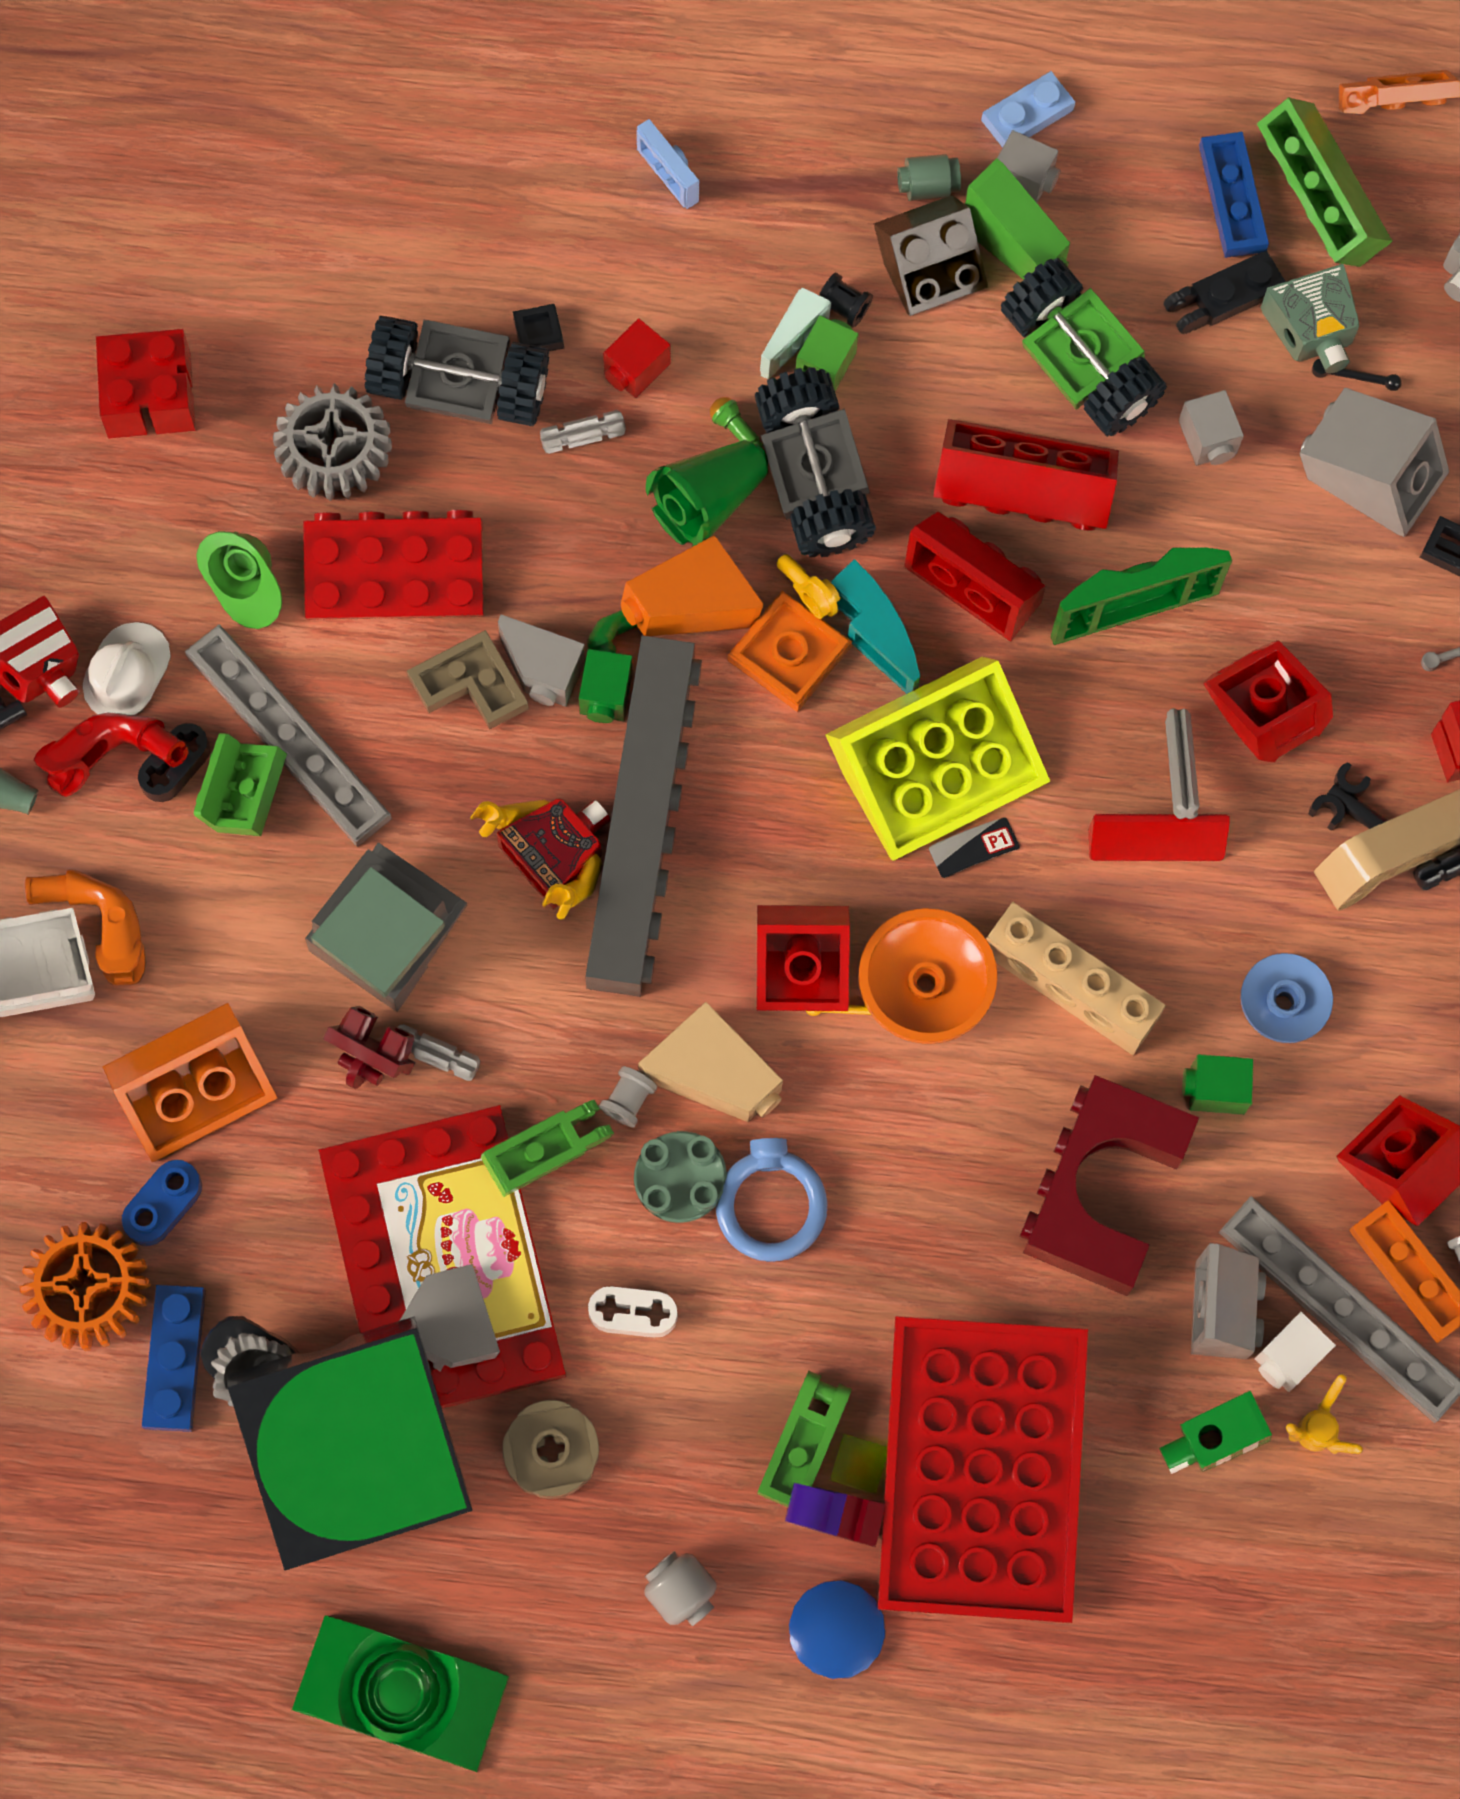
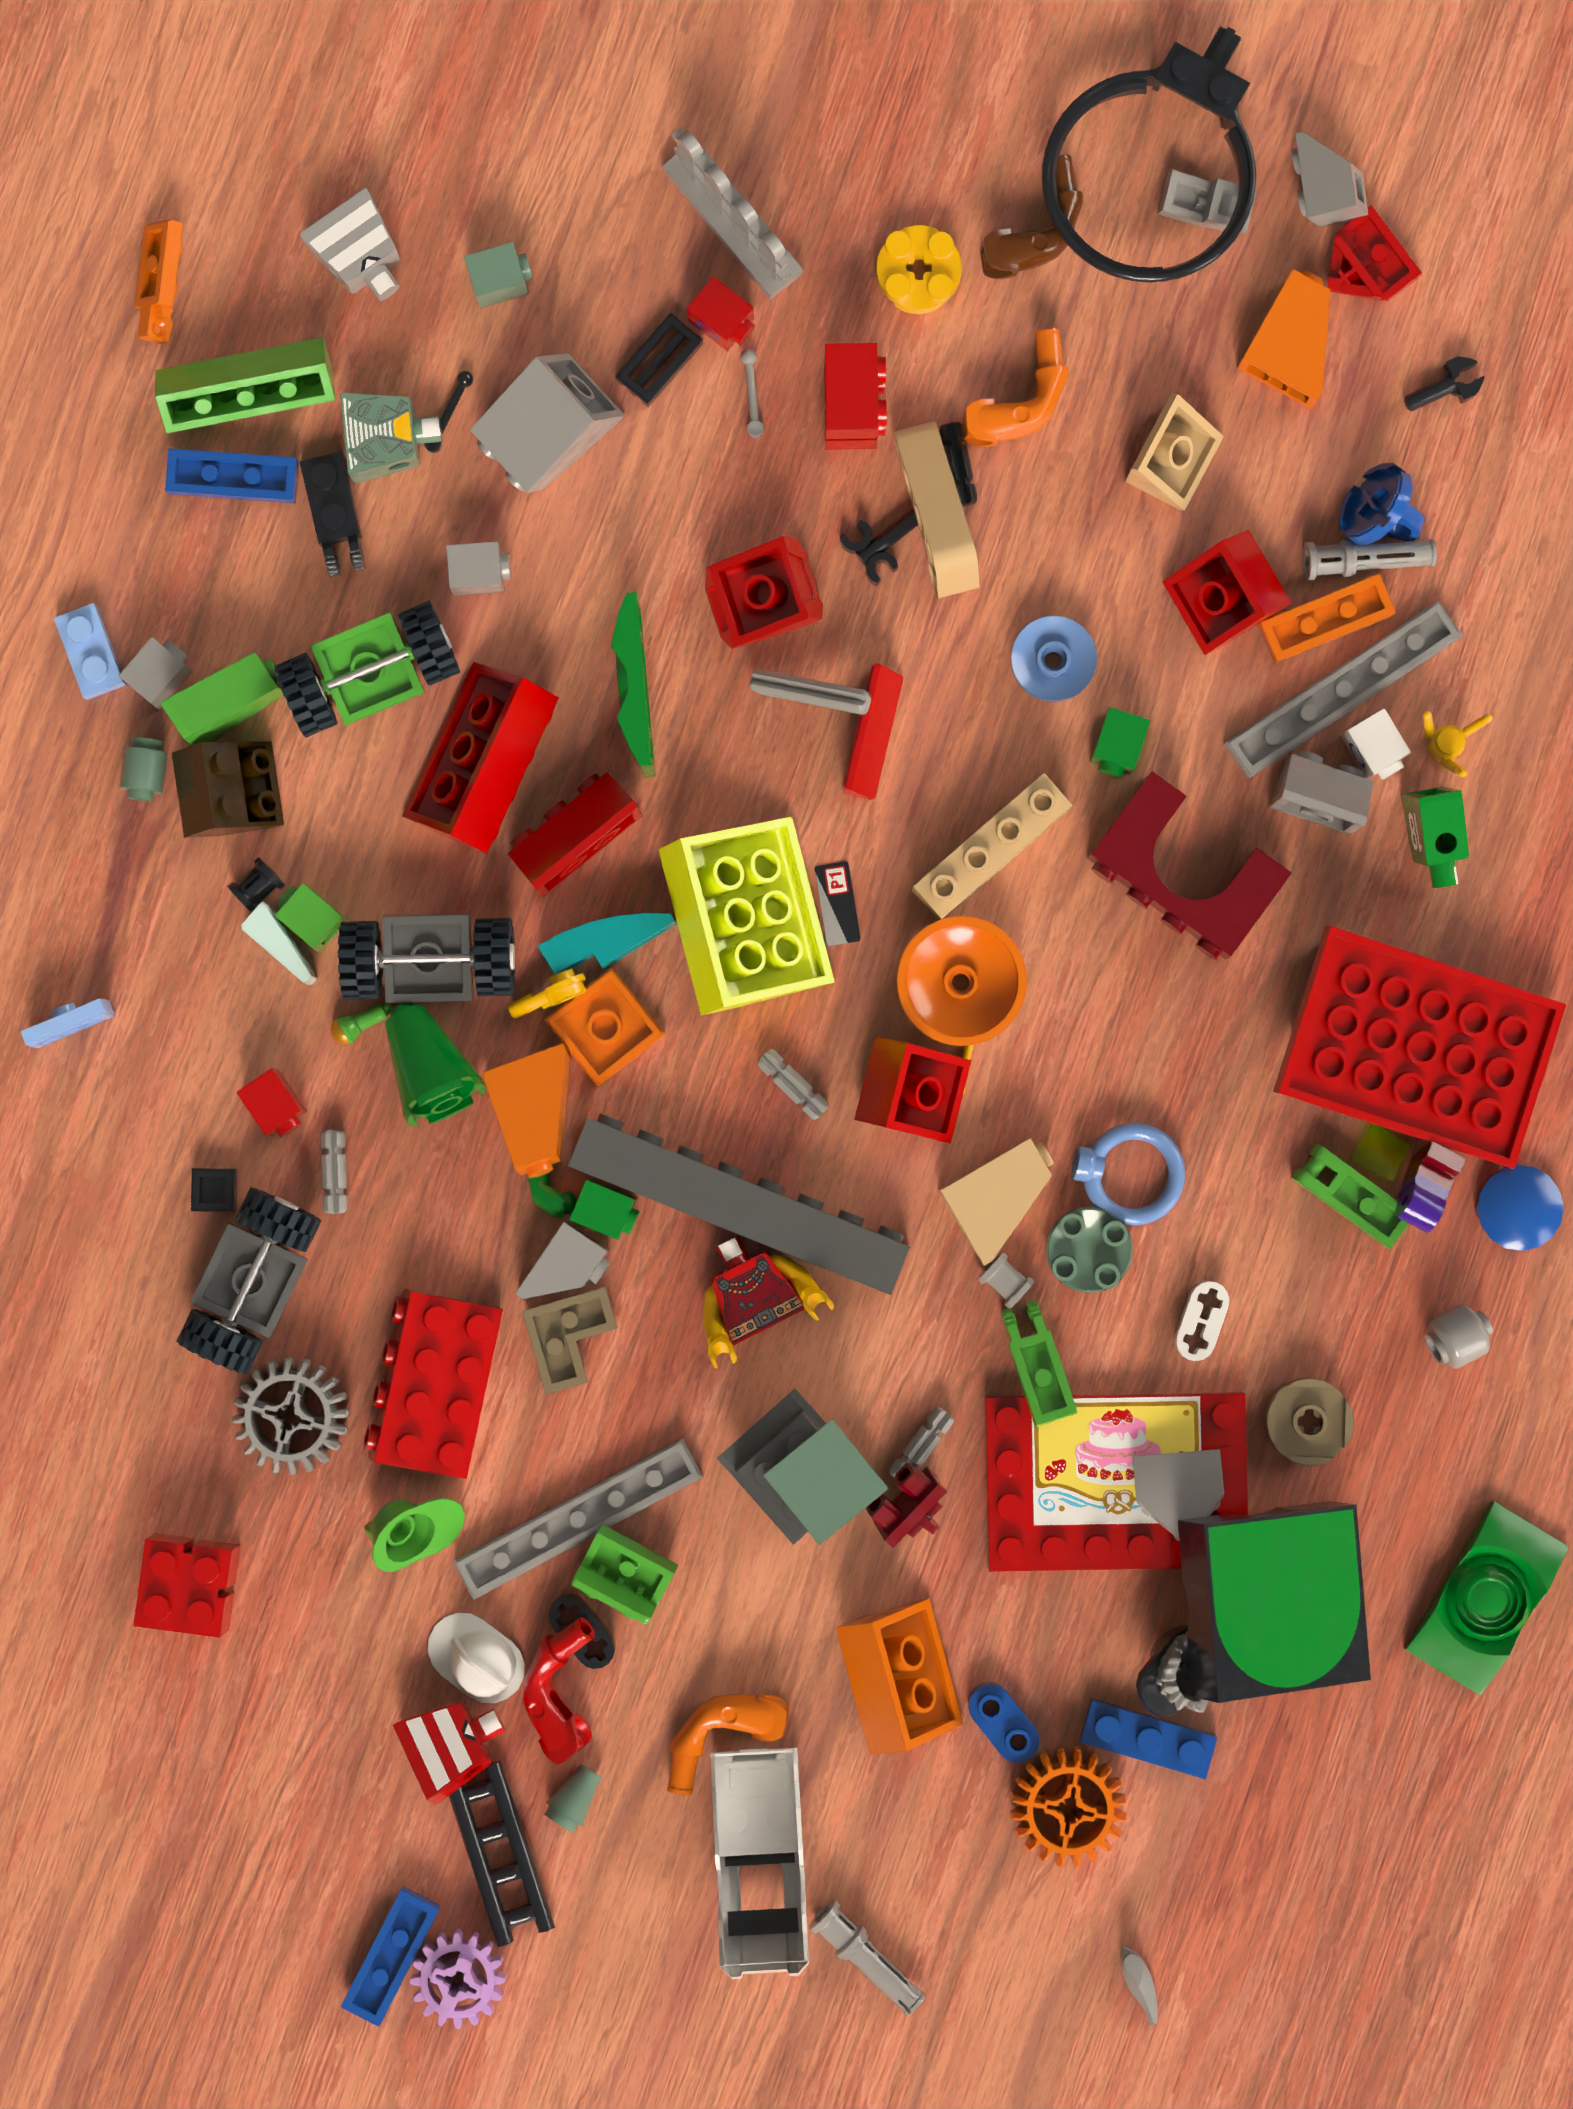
camera: 70 degrees left, 15 degrees up
(778, 842) = (792, 1084): none -> light grey axle

